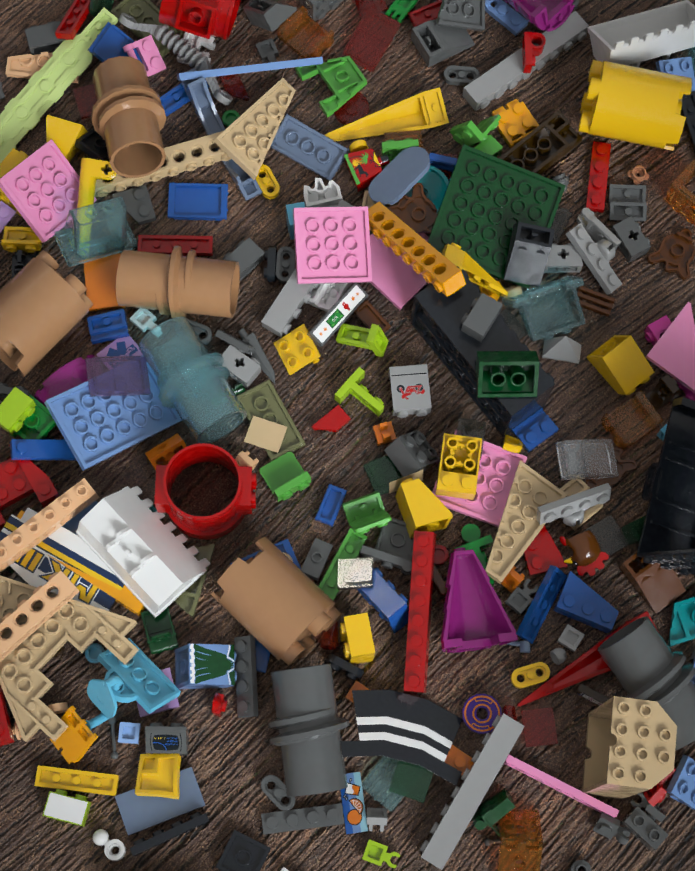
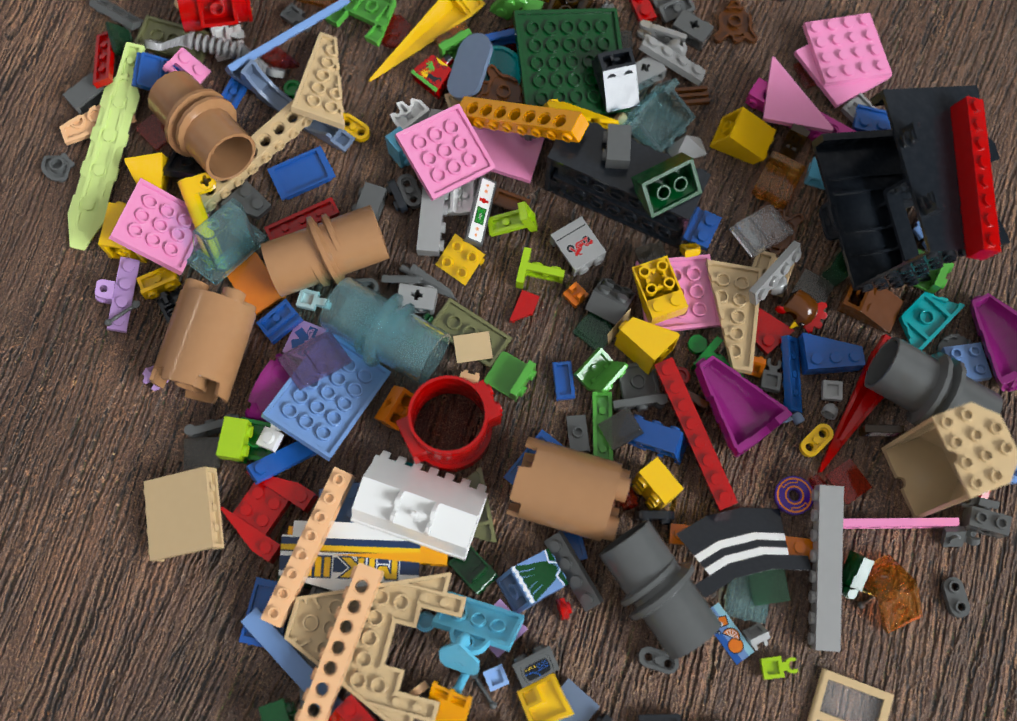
camera: 25 degrees left, 0 degrees up
(44, 426) = (270, 438): none -> white plate
(302, 819) = (691, 672): dark grey plate -> none
(309, 148) = (375, 81): sand blue tile -> none
(358, 145) = (417, 59): yellow tile -> none

